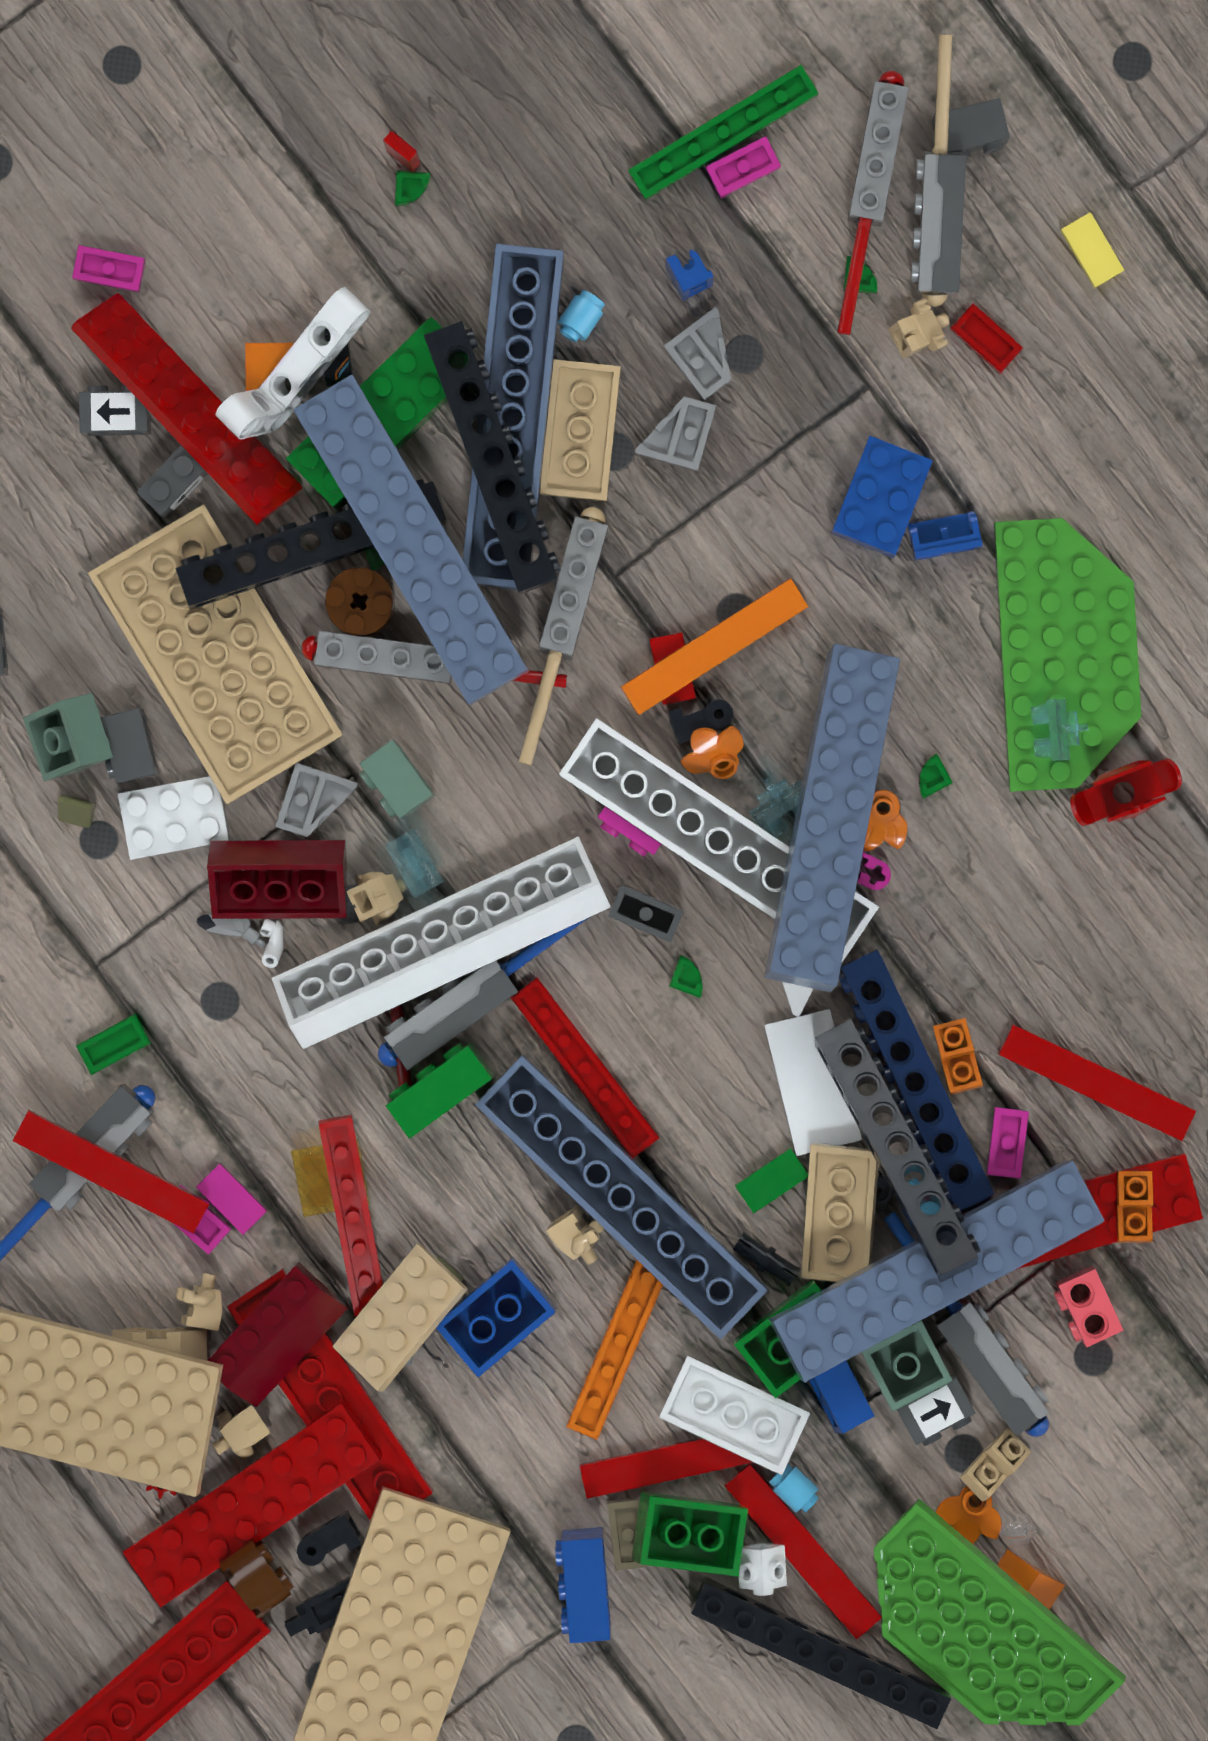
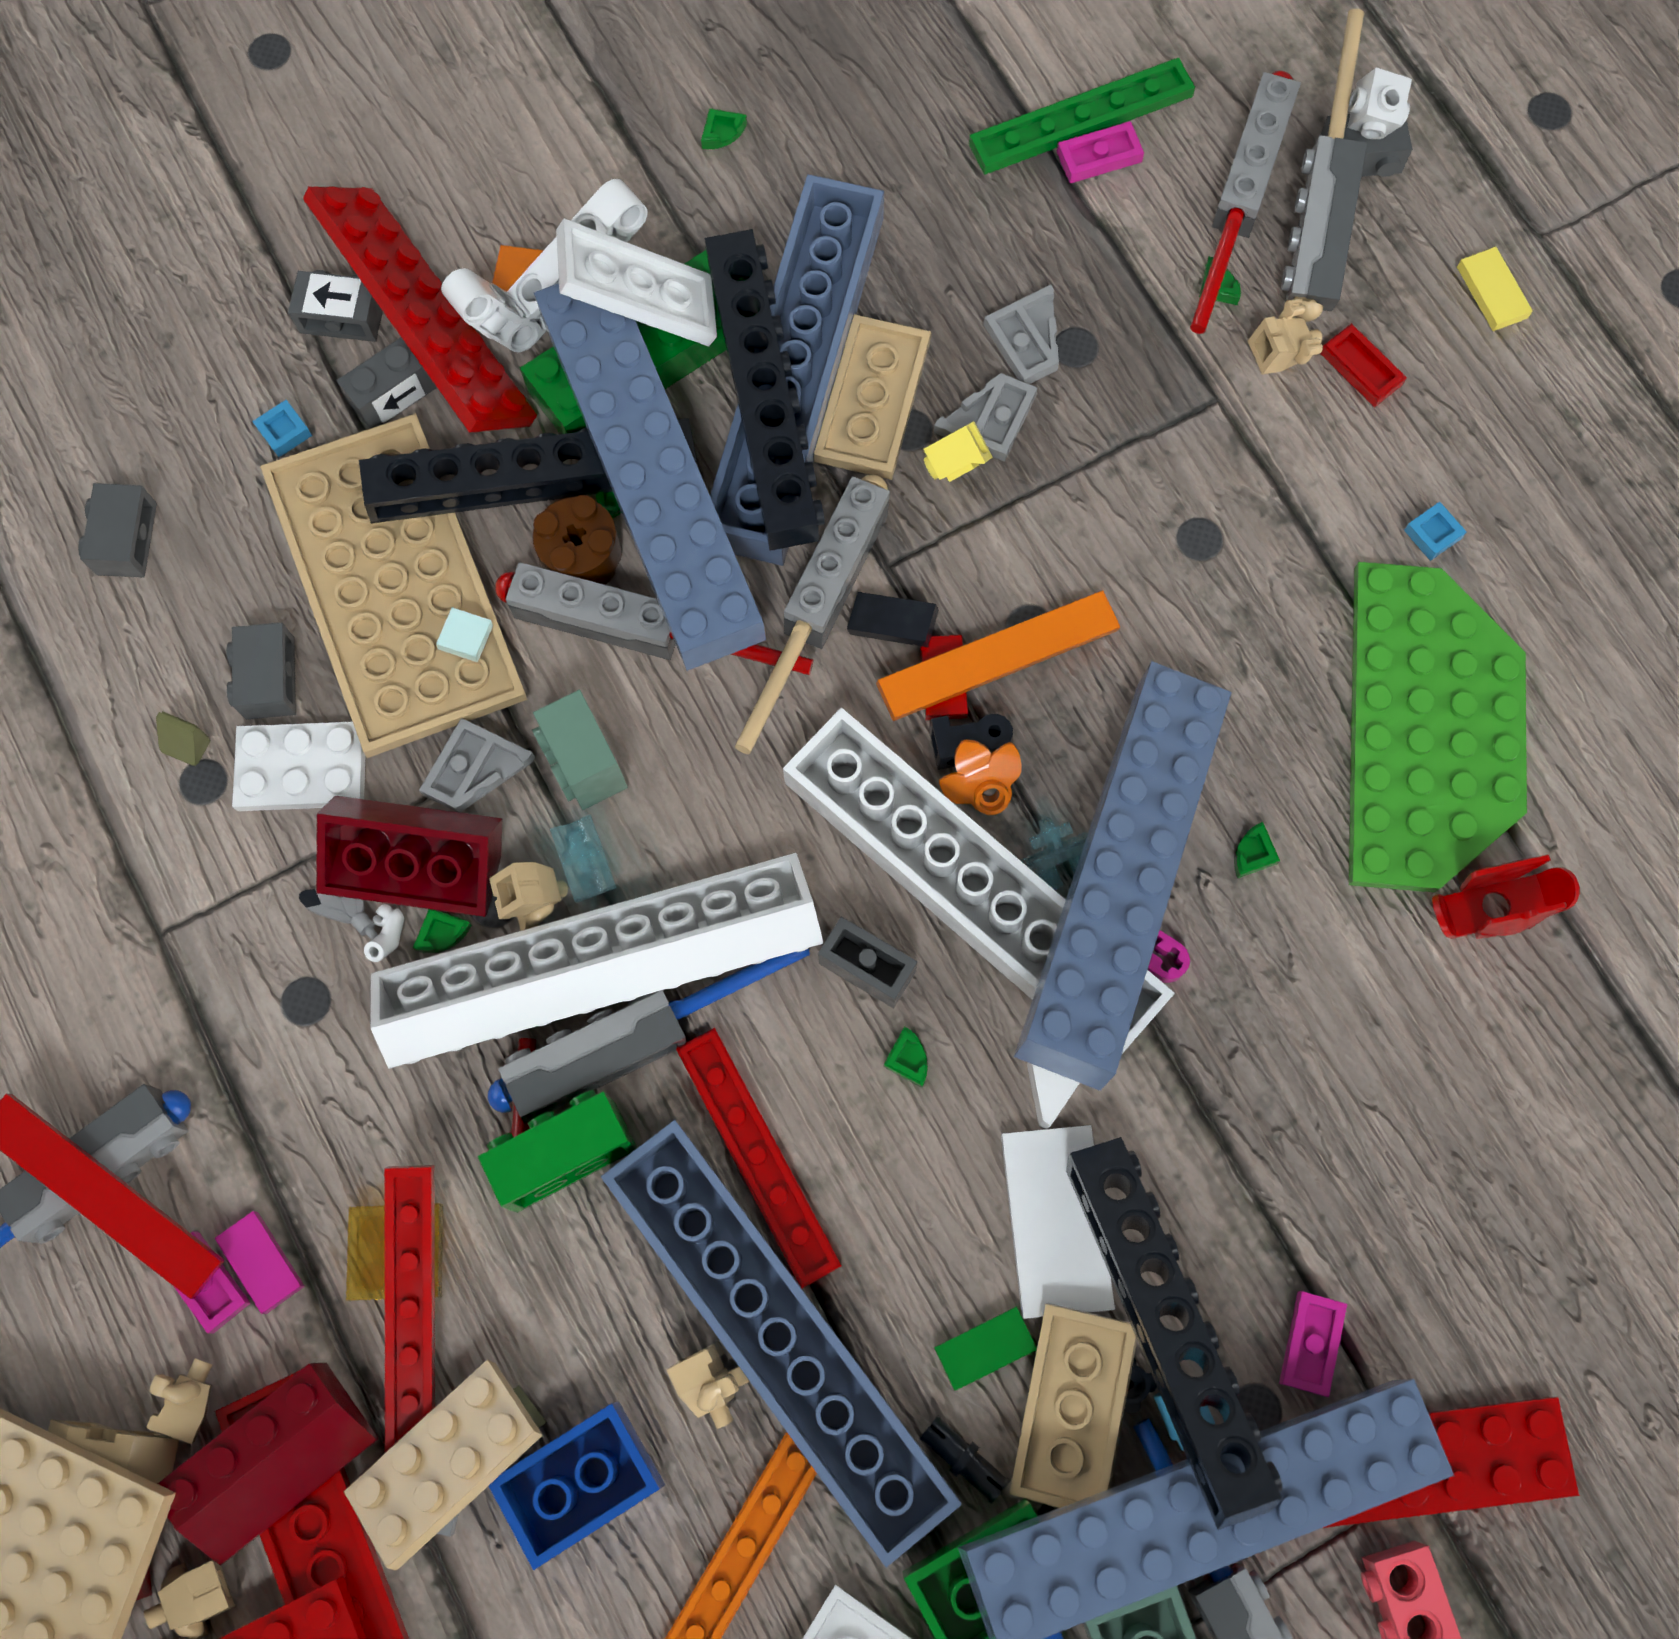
camera: 10 degrees right, 15 degrees down
(68, 737) = (186, 642): sand green brick -> none
(94, 531) = (282, 428): none -> dark azure plate
(109, 268) = (367, 162): dark pink plate -> none
(113, 1044) = (156, 1034): green tile -> none
(286, 695) = (464, 634): none -> light aqua tile
(313, 933) = (440, 932): none -> green tile
(377, 393) = (635, 283): none -> white plate
(401, 151) = (717, 76): red tile -> none
(581, 316) = (893, 277): medium azure brick -> none
(625, 627) = (892, 619): none -> black tile
(639, 841) = (872, 871): dark pink plate -> none
(657, 477) = (957, 453): none -> light yellow window
(691, 278) = (1025, 241): blue hinge -> none
(871, 966) = (1153, 1077): dark blue brick -> none
(881, 496) = (1223, 512): blue brick -> none
(885, 825) = (1193, 901): orange plate -> none
(944, 536) = (1296, 572): blue hinge -> none
(957, 1056) = (1253, 1215): orange slope -> none
(974, 112) = (1379, 103): none -> white brick
(1055, 485) = (1435, 531): none -> dark azure plate
(1057, 744) = (1420, 787): clear light blue hips -> none
(1097, 1082) = (1442, 1281): red tile -> none
(1134, 1206) = (1487, 1462): orange slope -> none

